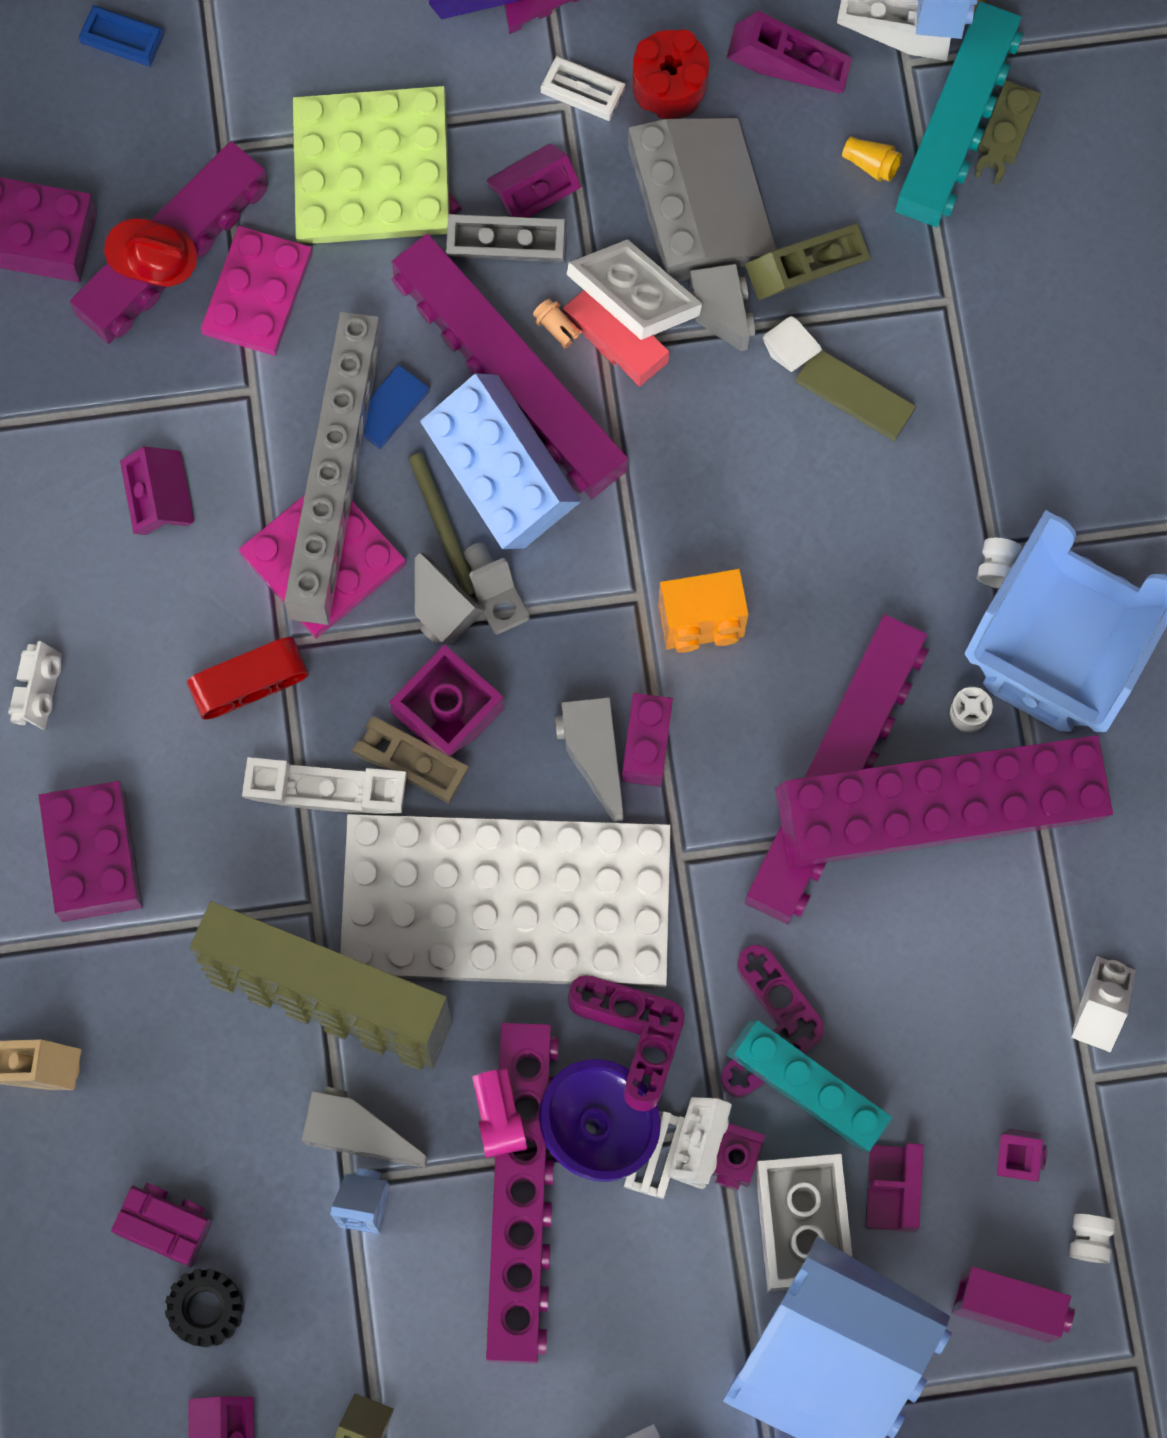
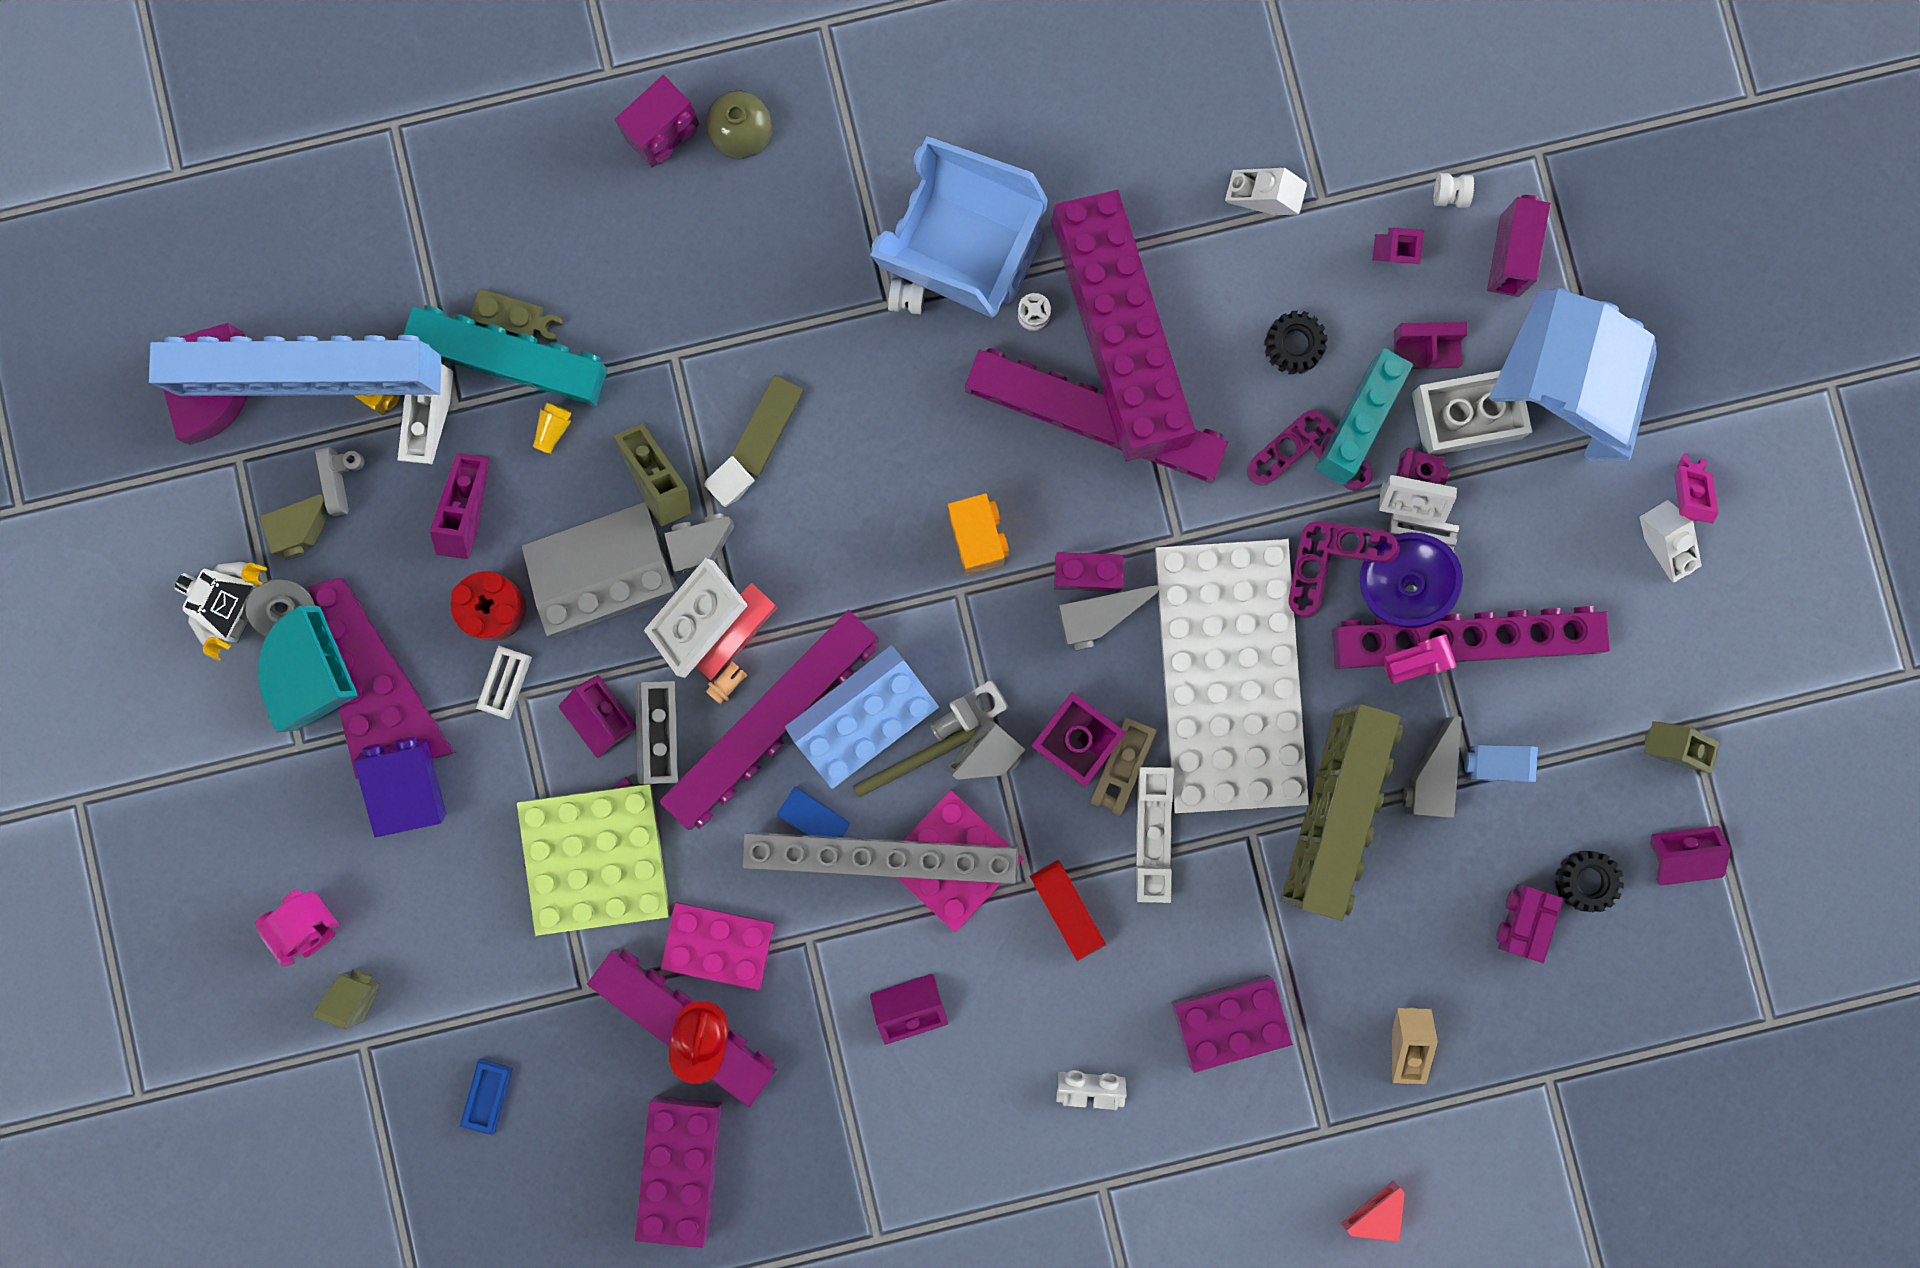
camera: 90 degrees left, 10 degrees up
(928, 1002) = (1305, 325): none -> black tyre

